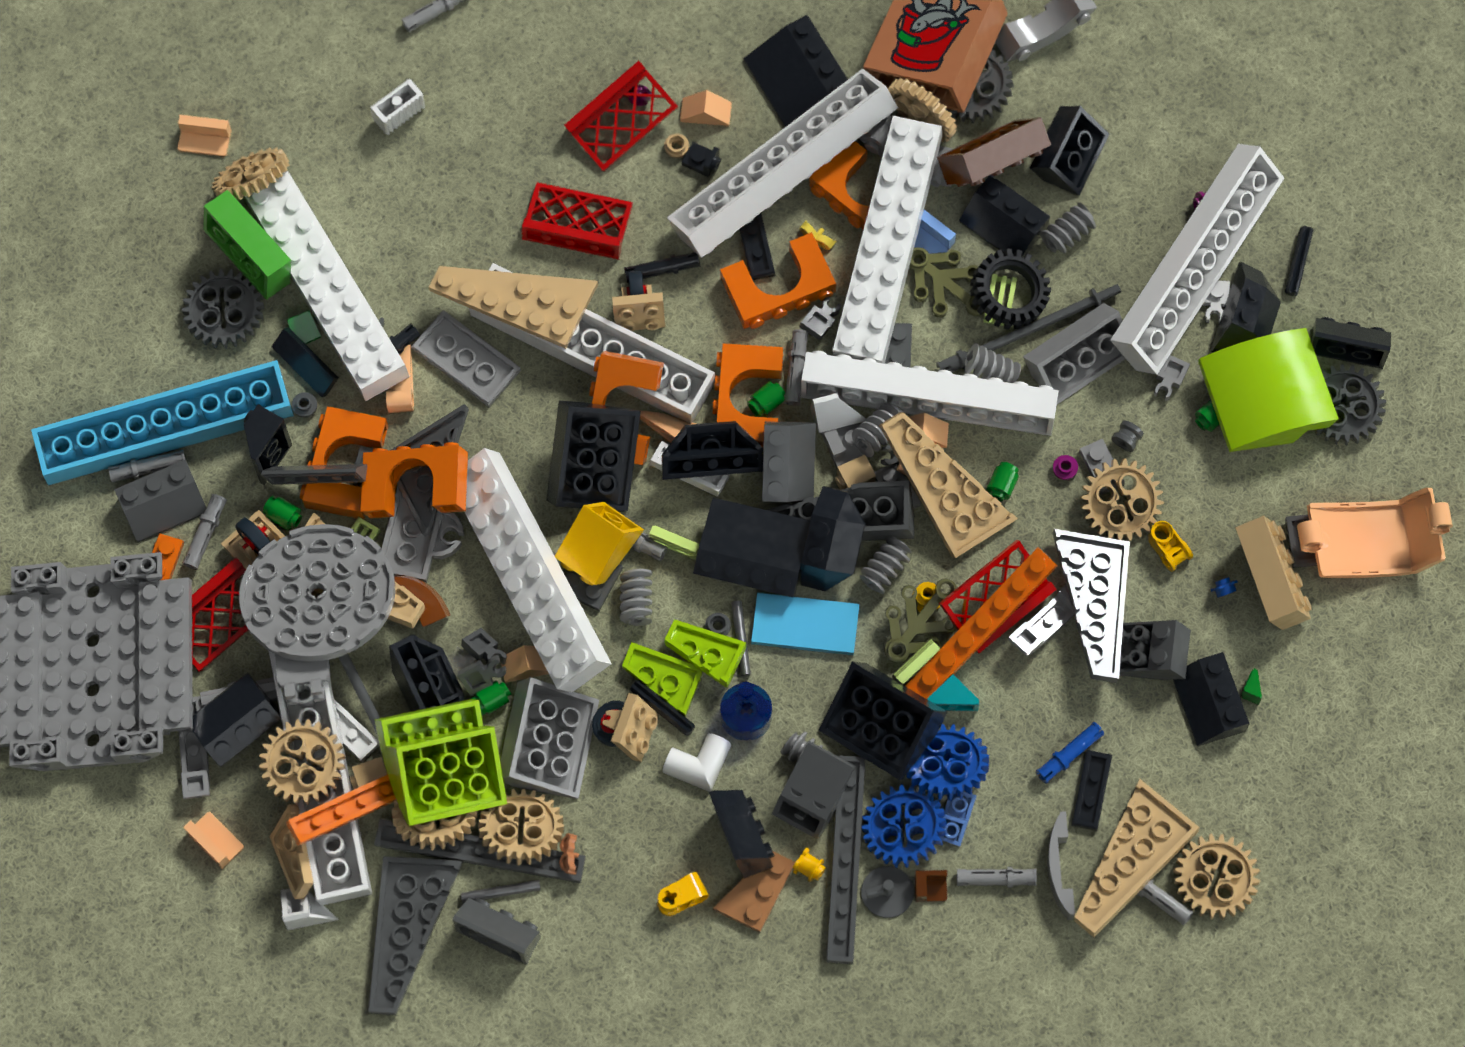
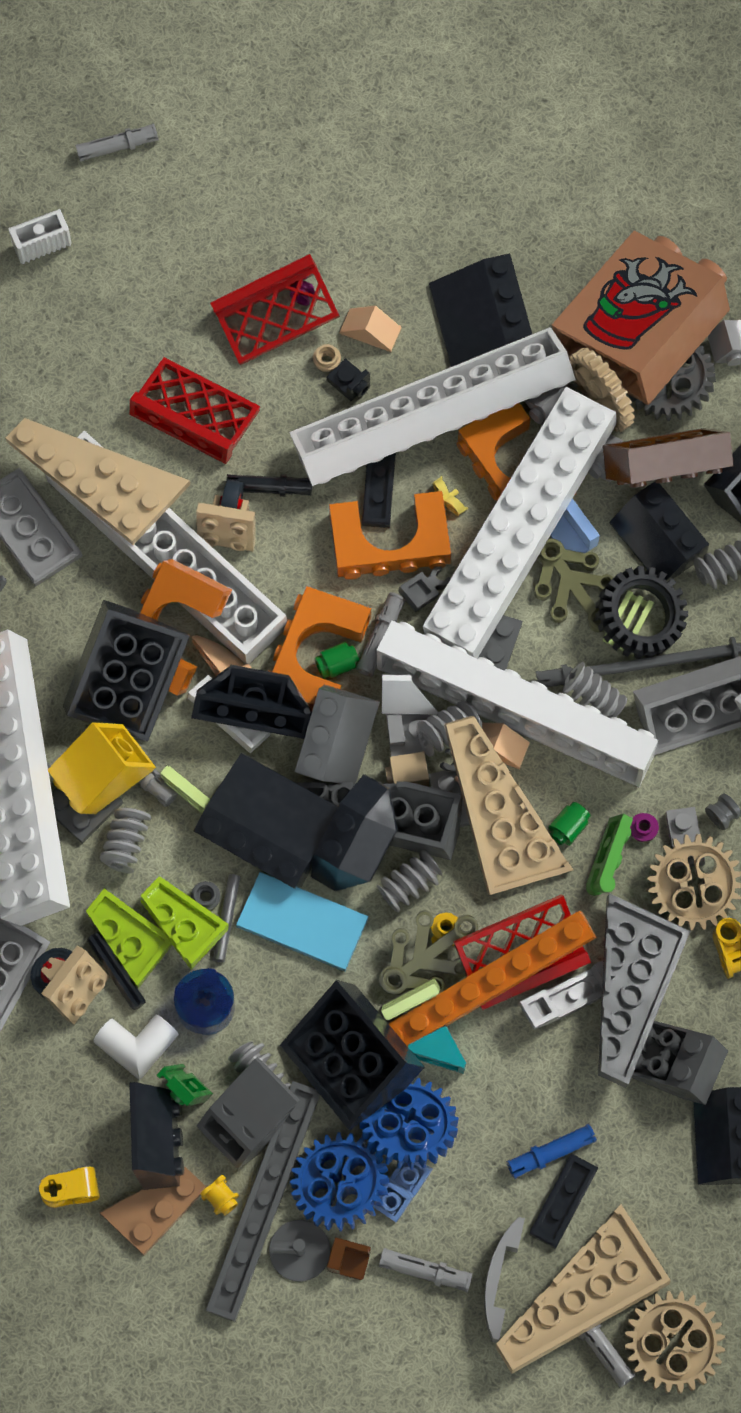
camera: 15 degrees right, 0 degrees up
(753, 785) = (185, 1087): none -> green plate
(1044, 498) = (609, 855): none -> bright green plate

